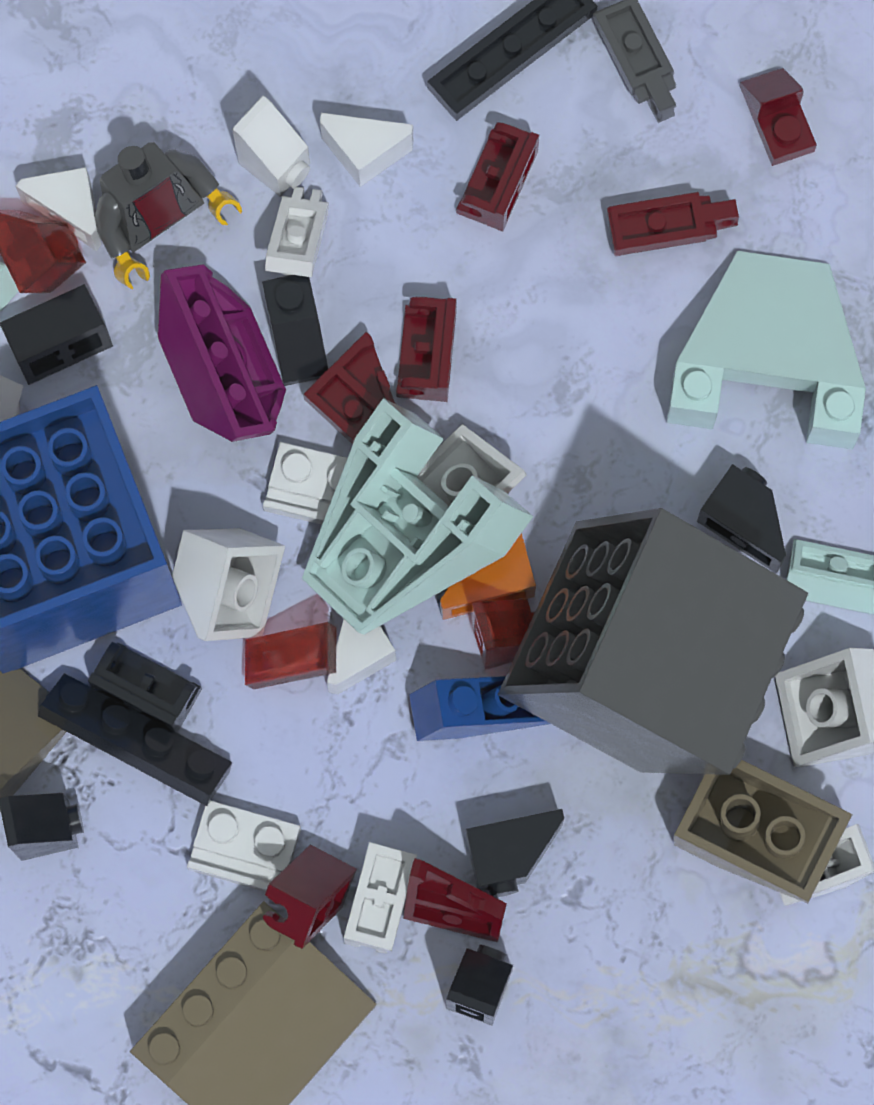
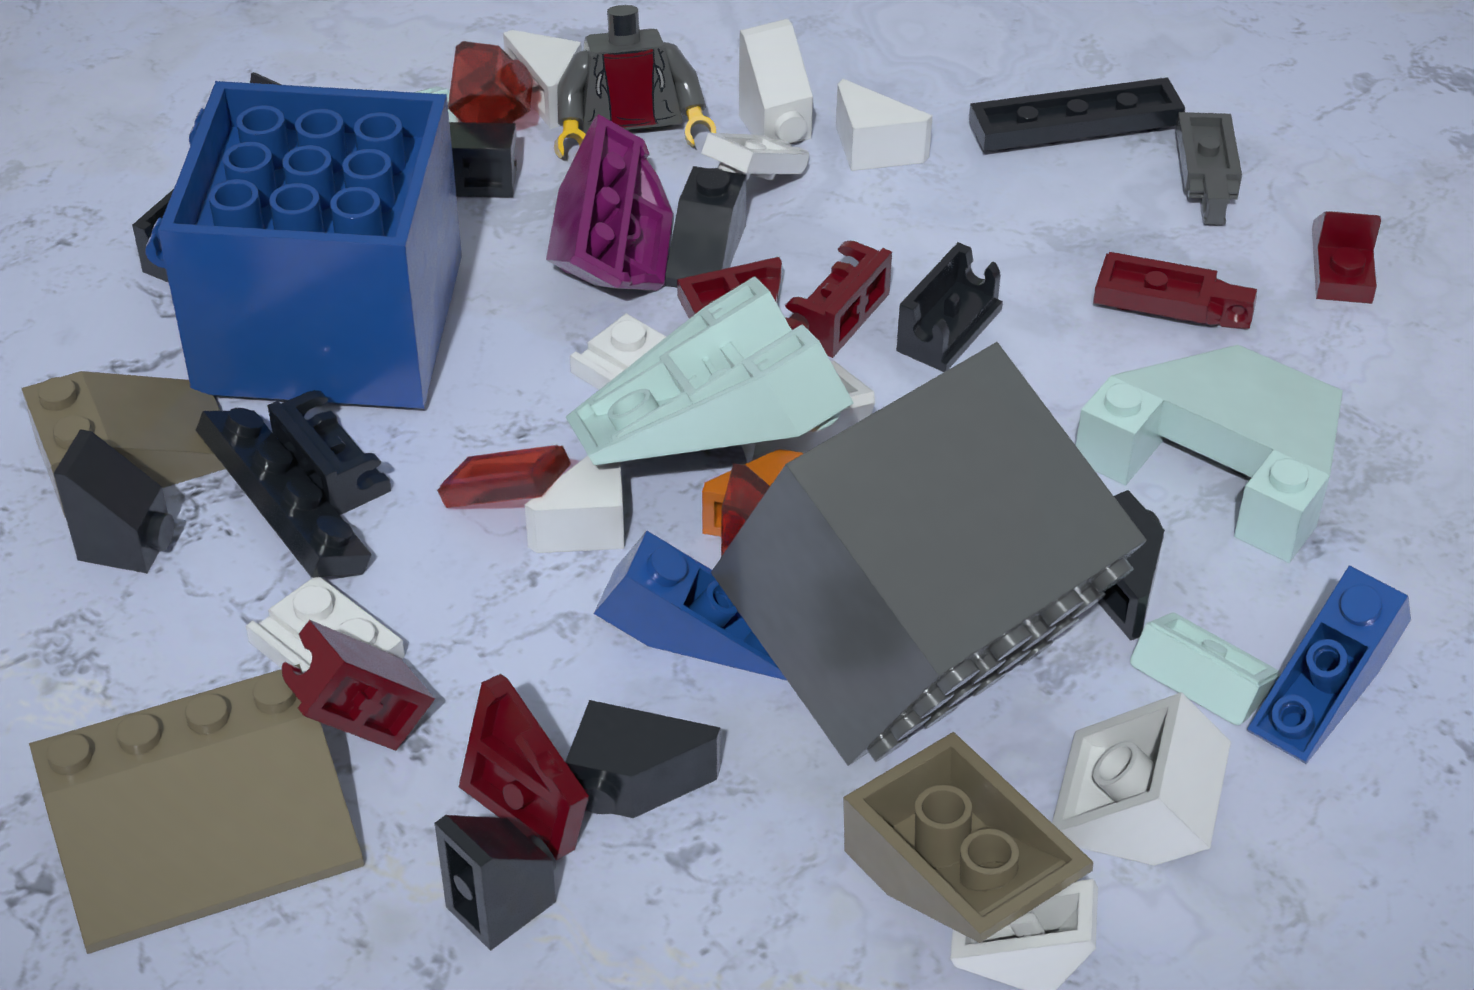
camera: 25 degrees right, 30 degrees down
(226, 581) = (480, 375): white slope -> none
(379, 898) = (424, 736): white hinge -> none
(499, 176) = (1007, 203): dark red hinge -> none
(518, 324) = (948, 310): none -> black hinge

